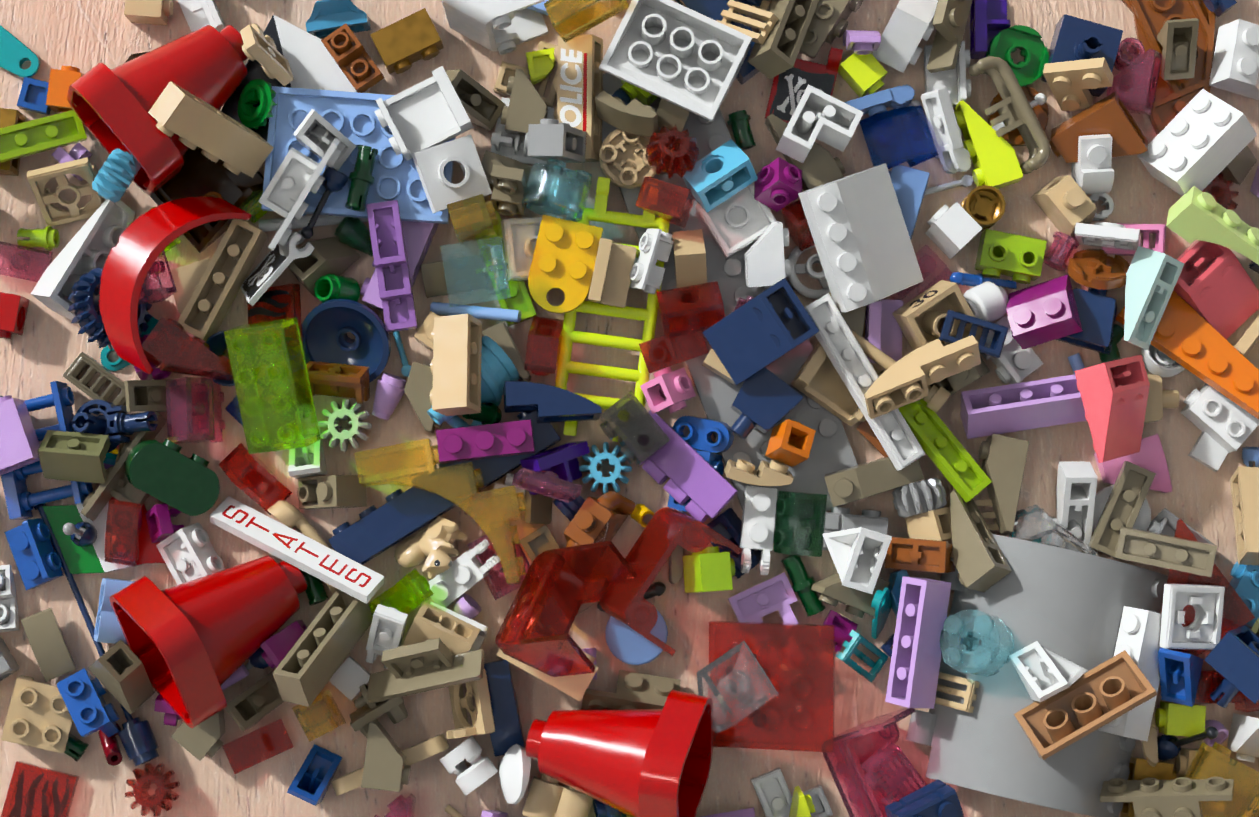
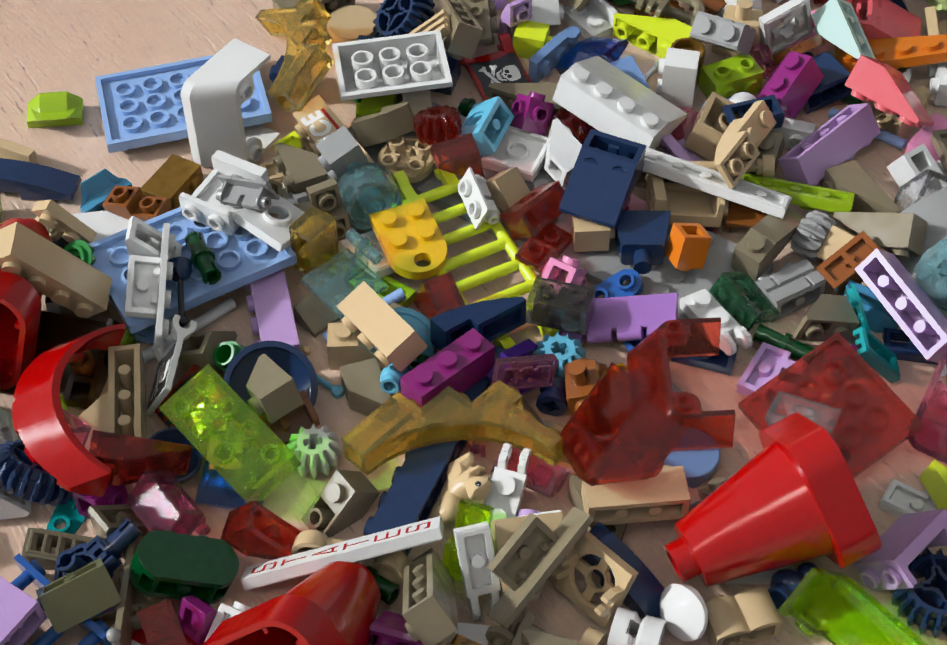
camera: 30 degrees left, 35 degrees down
(307, 460) = (298, 493): slope -> none
(329, 365) = (272, 390): none -> dark tan slope
(354, 234) = (224, 319): clear green cone -> none
(387, 395) = (334, 409): lavender cone -> none
(392, 266) = (271, 306): medium lavender slope -> none
(445, 143) = (256, 192): none -> light grey hinge
(612, 273) = (454, 224): tan panel -> none
(708, 571) = (705, 365): lime brick -> none
(767, 474) = (688, 281): tan slope -> none
(818, 118) = (530, 58): white brick -> none
(858, 556) = (808, 277): white slope -> none
(945, 131) = (606, 25): white hinge -> none
(1030, 213) = (723, 33): none -> light grey brick

